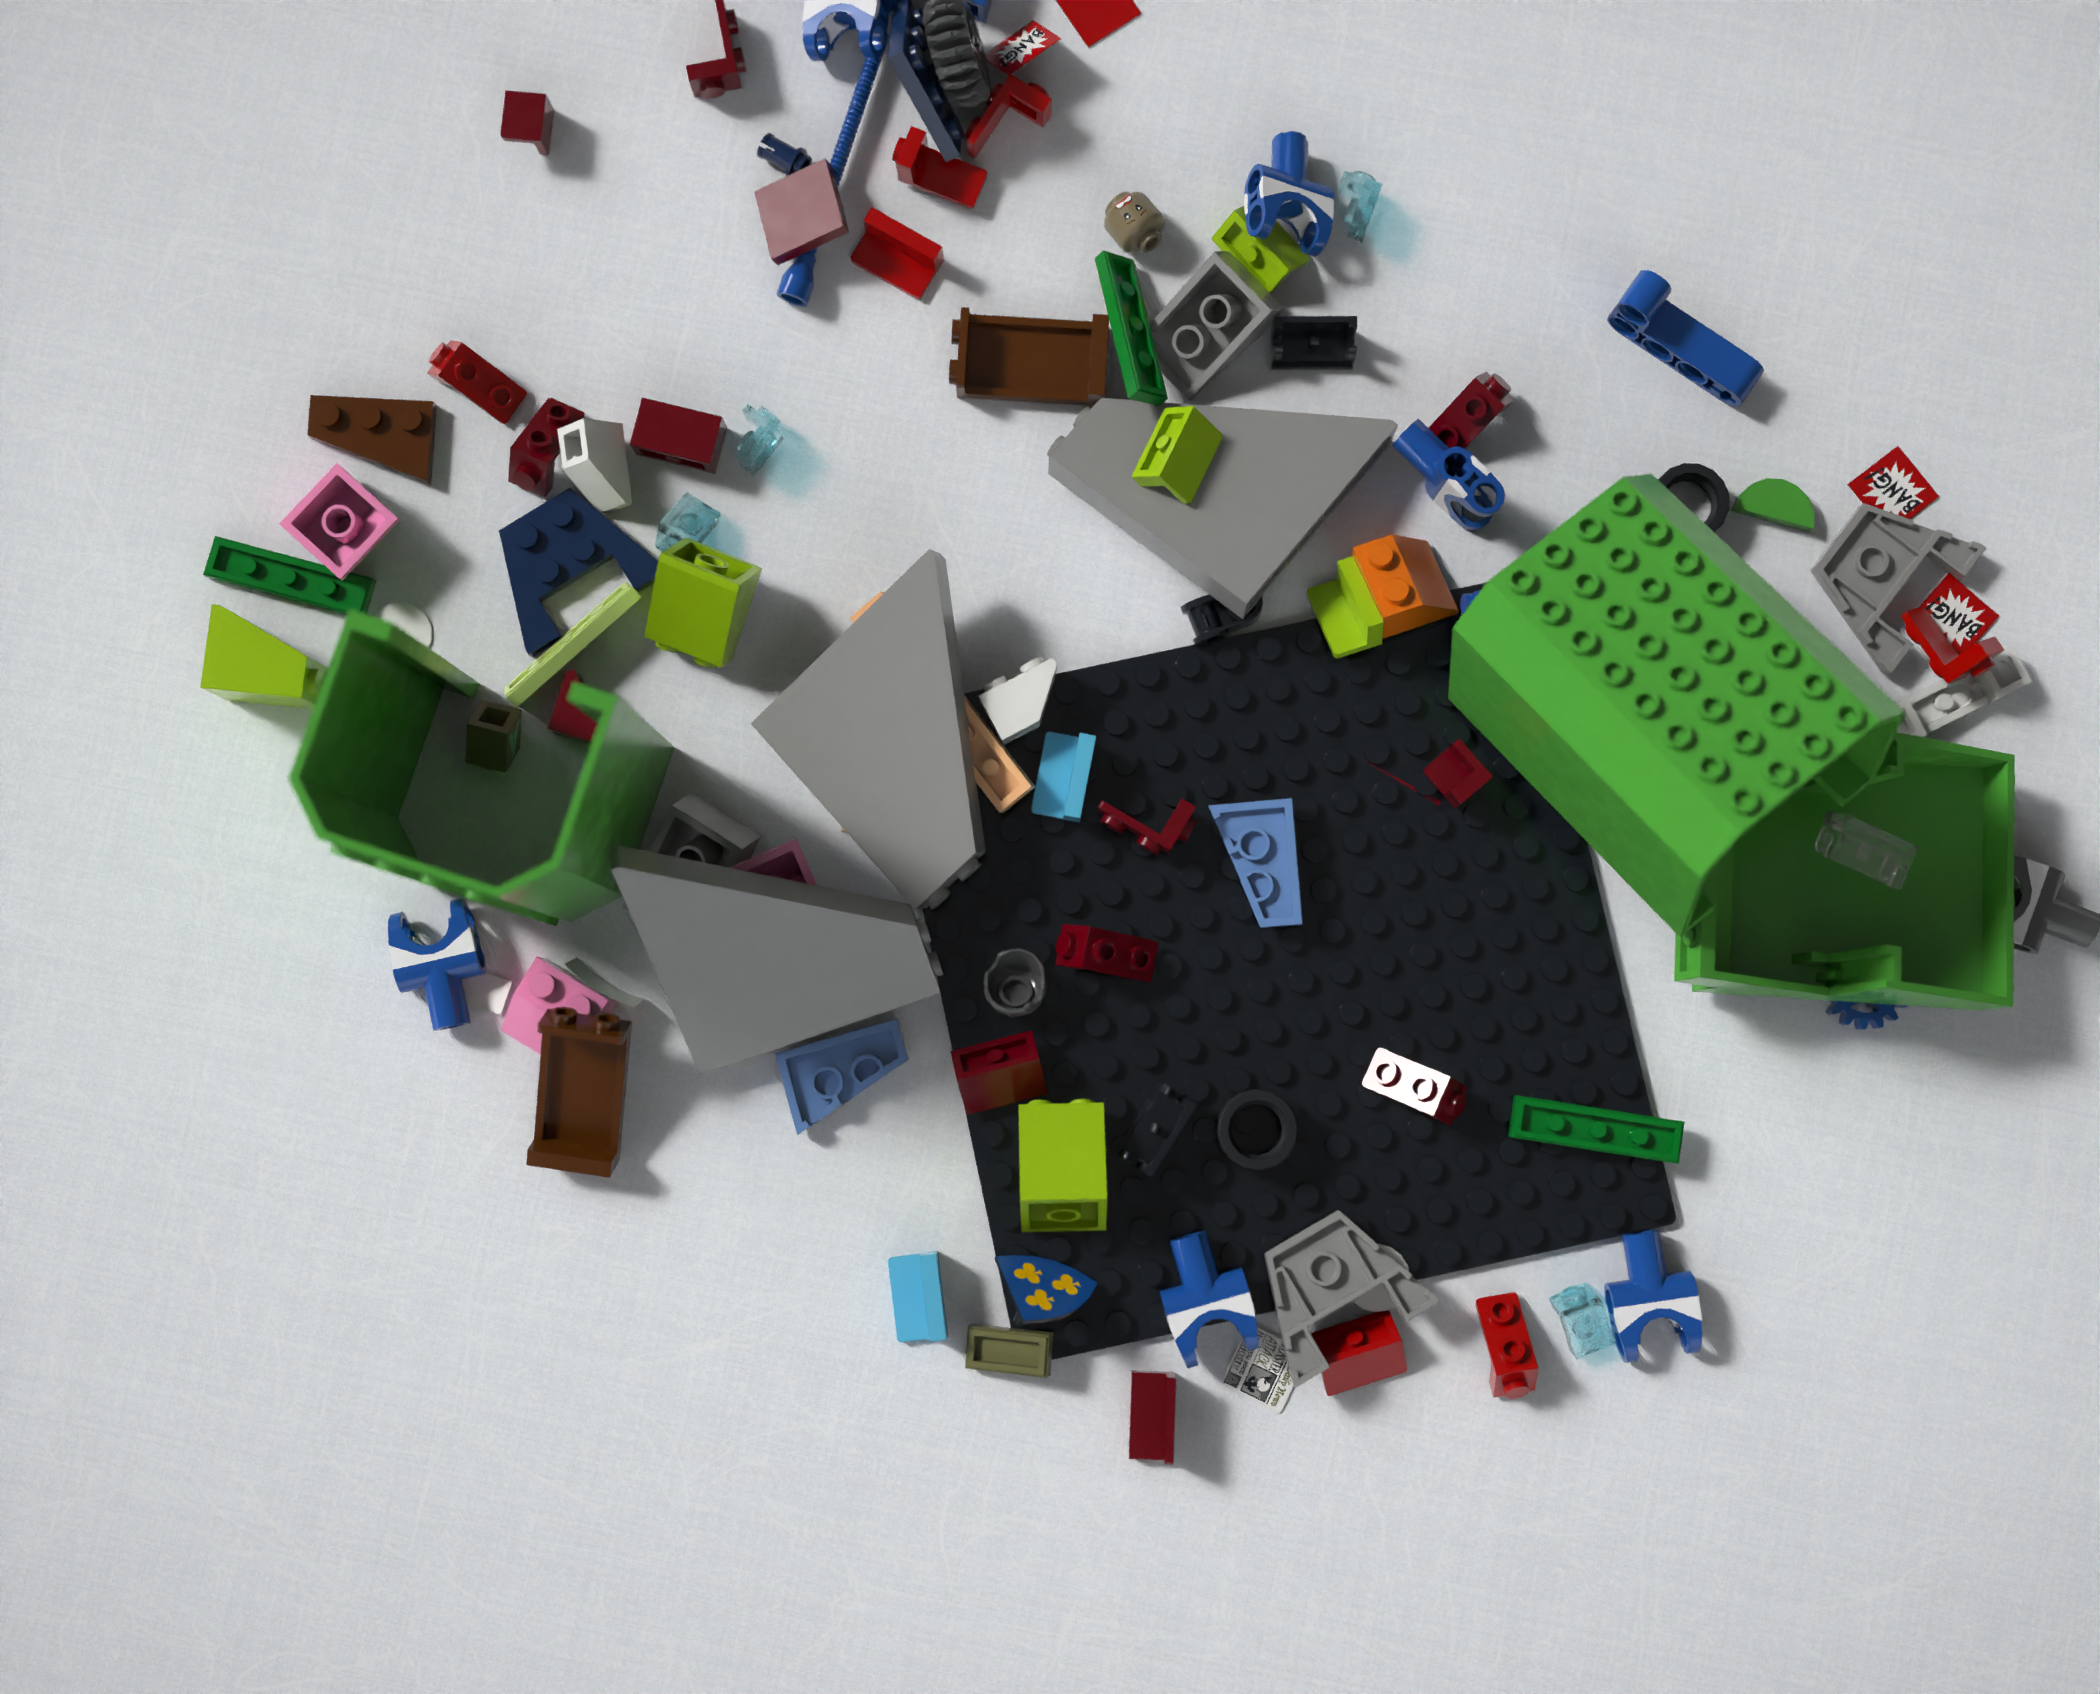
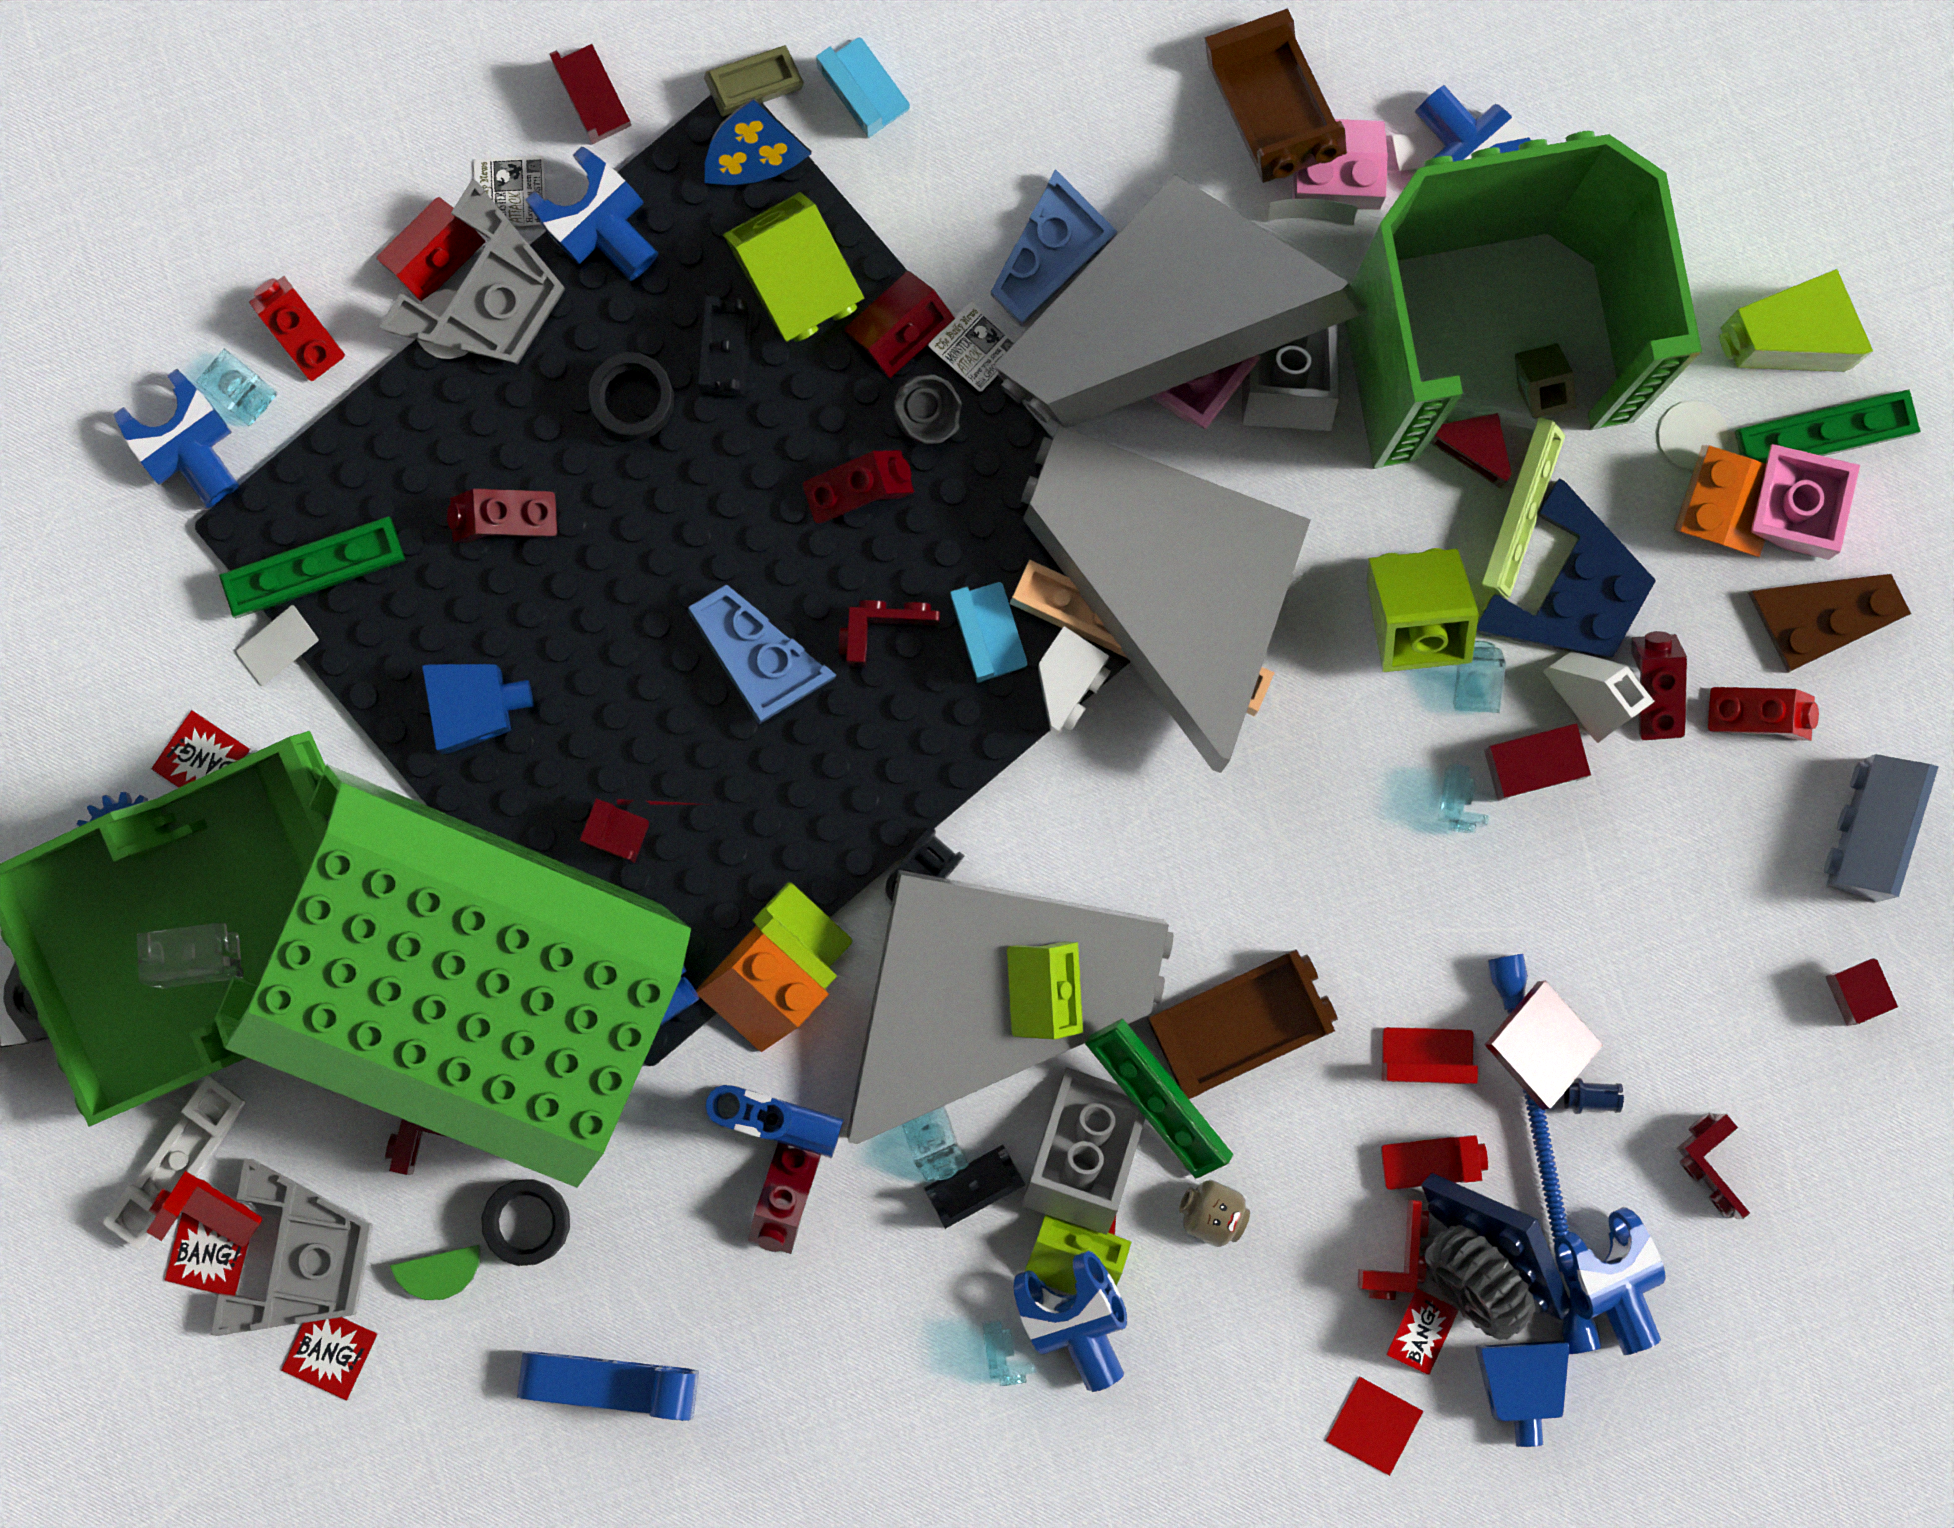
camera: 150 degrees right, 0 degrees up
(407, 563) = (1723, 500): none -> orange slope
(435, 234) = (1880, 826): none -> sand blue slope
(946, 1021) = (973, 346): none -> sticker
(1328, 389) = (934, 1145): none -> clear light blue bracket
(1522, 942) = (471, 703): none -> blue torso
(1655, 1081) = (277, 645): none -> white sticker
(1764, 1026) = (197, 751): none -> sticker

